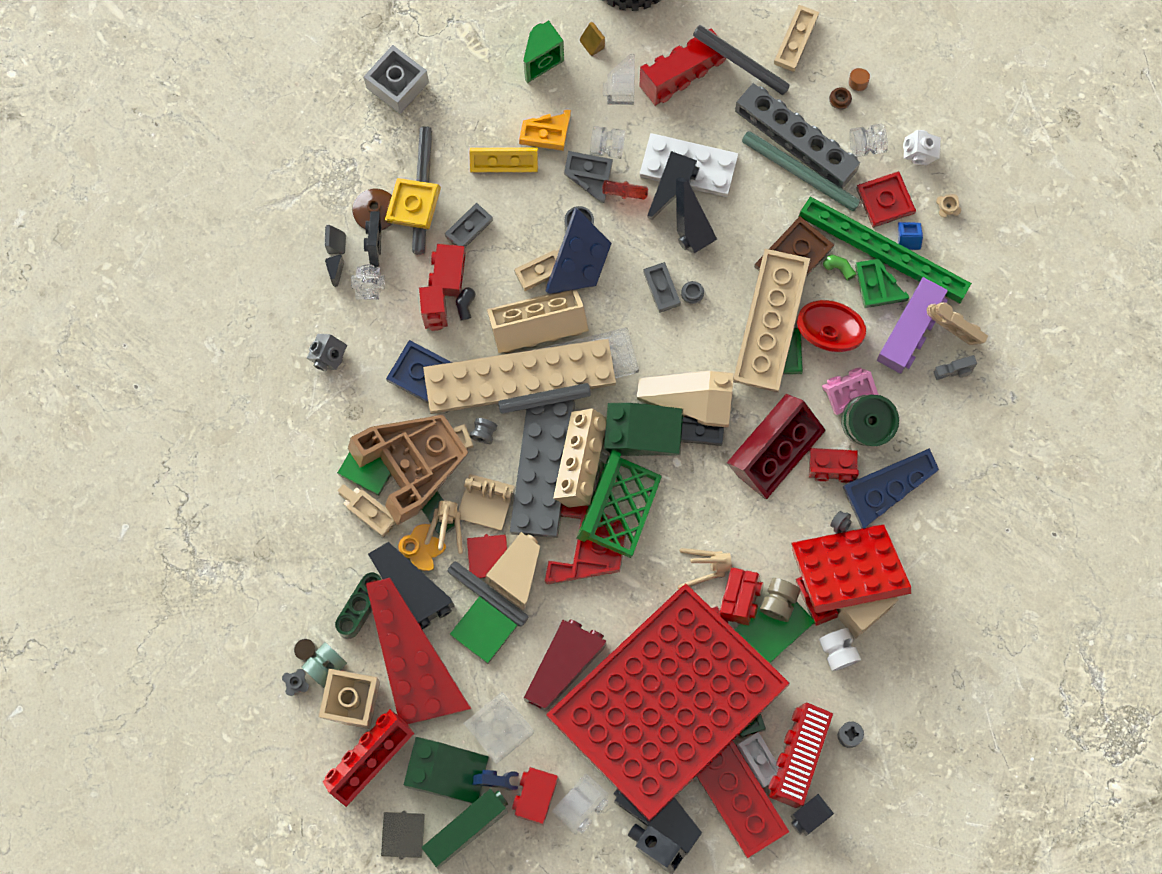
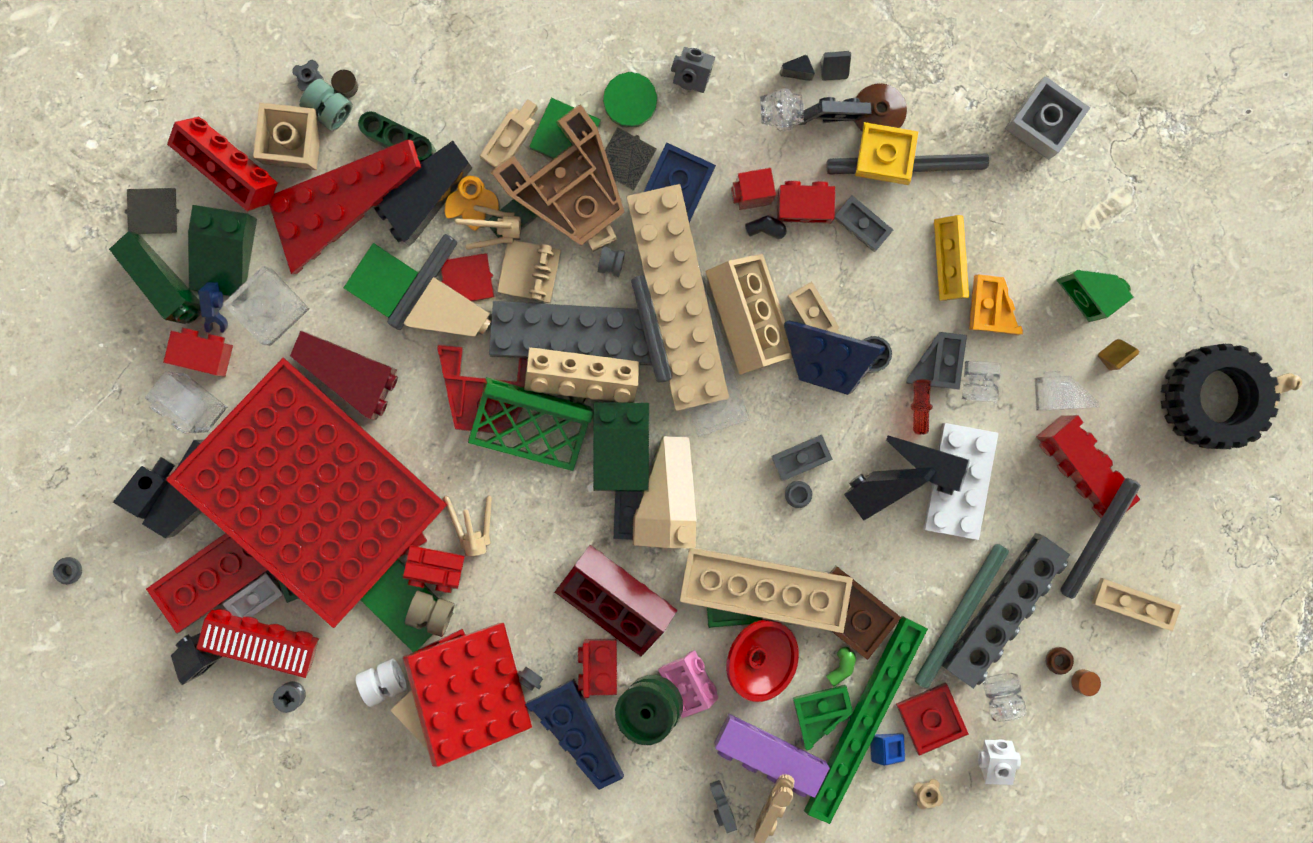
camera: 90 degrees right, 15 degrees up
(345, 408) = (630, 99): none -> green tile
(394, 409) = (628, 157): none -> clear smoke piece

